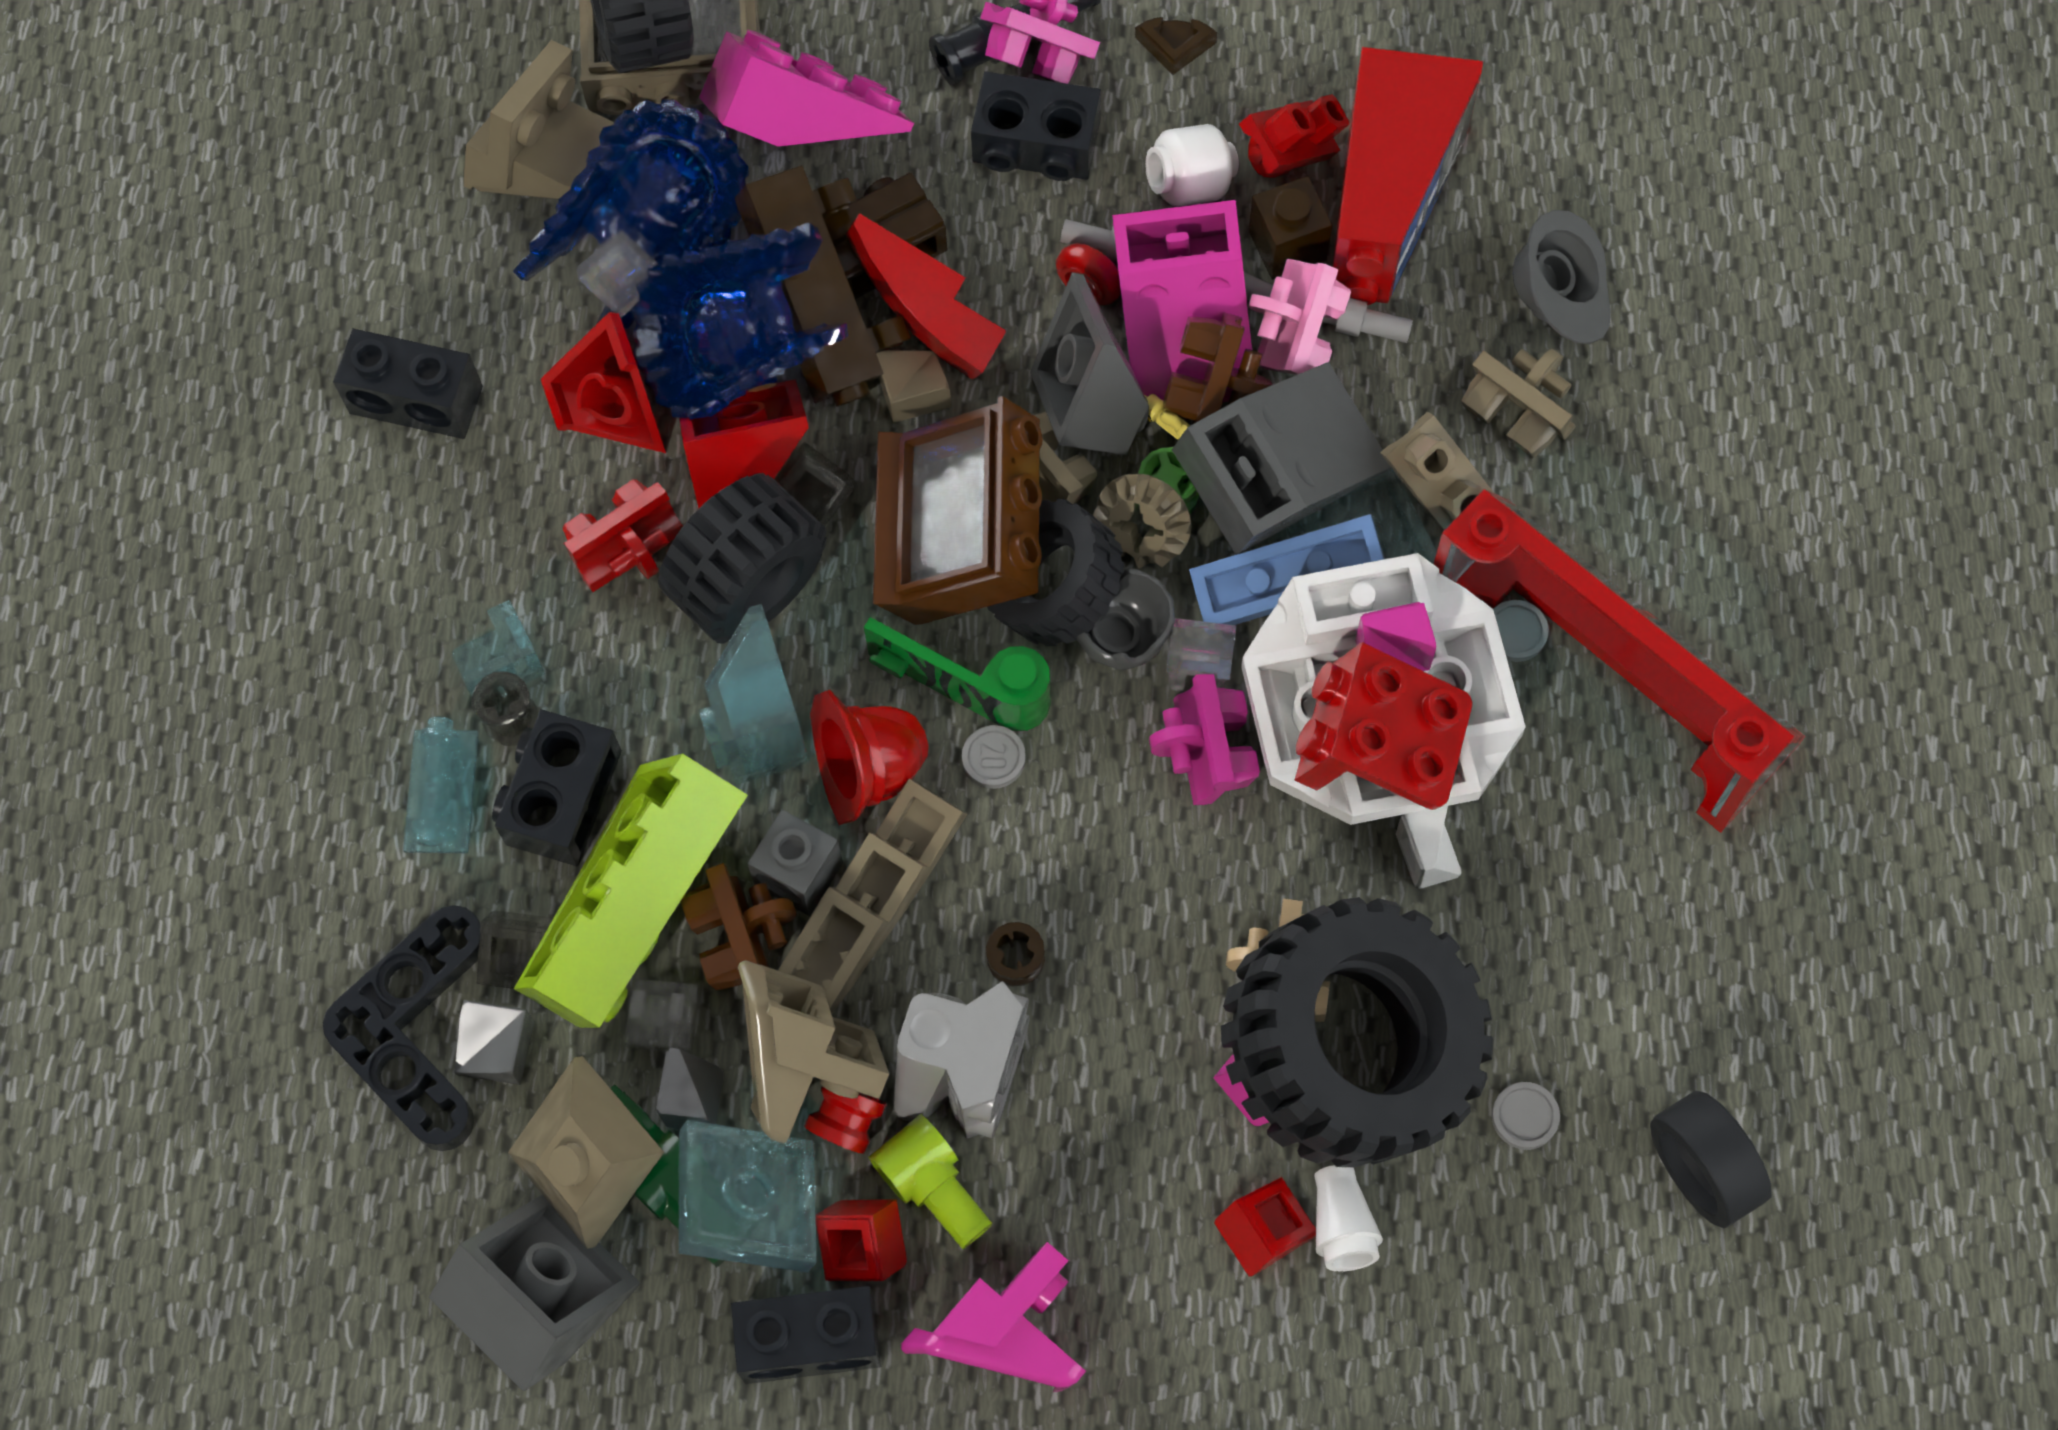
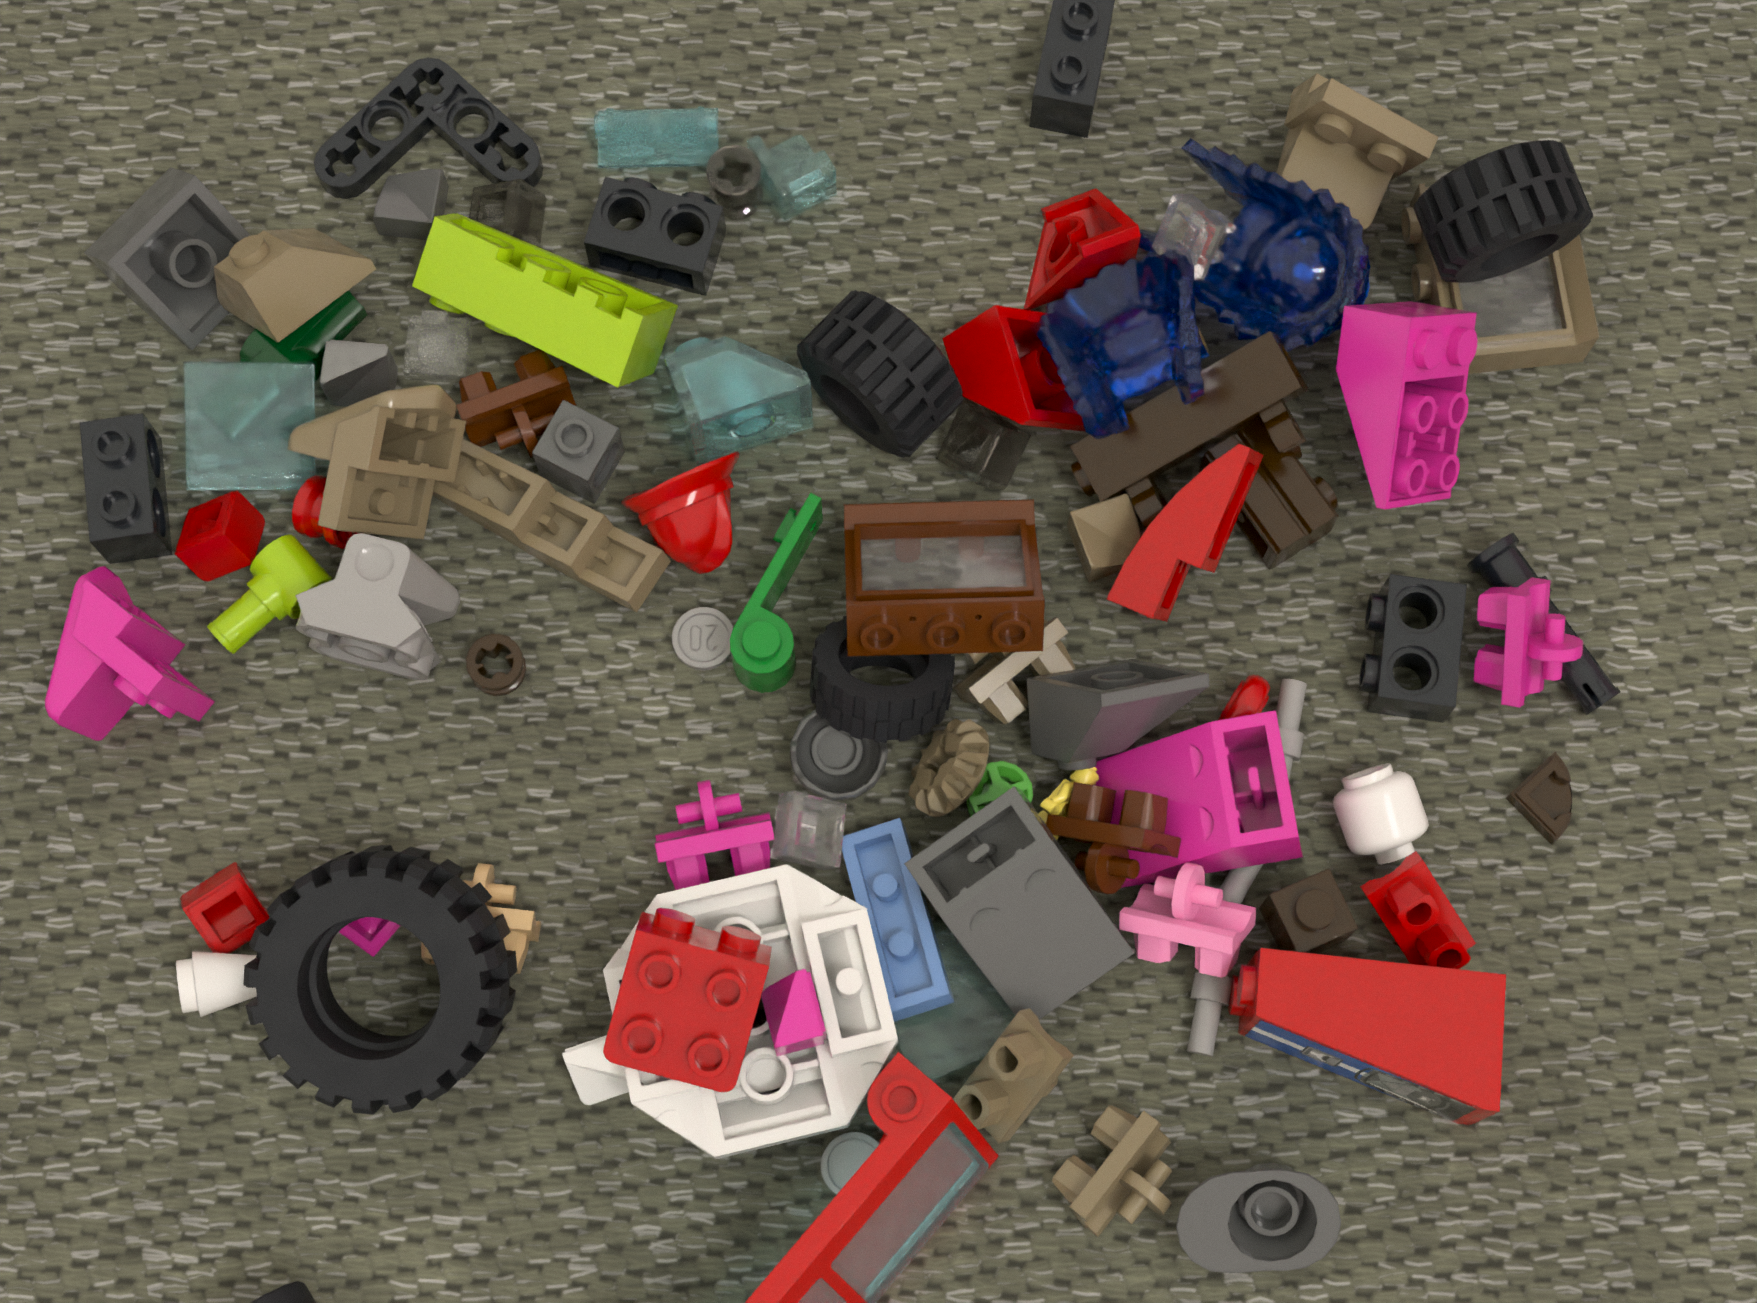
camera: 85 degrees right, 5 degrees up
(624, 537) = (916, 277): red hips -> none
(1525, 1115) = (330, 1165): light grey piece -> none

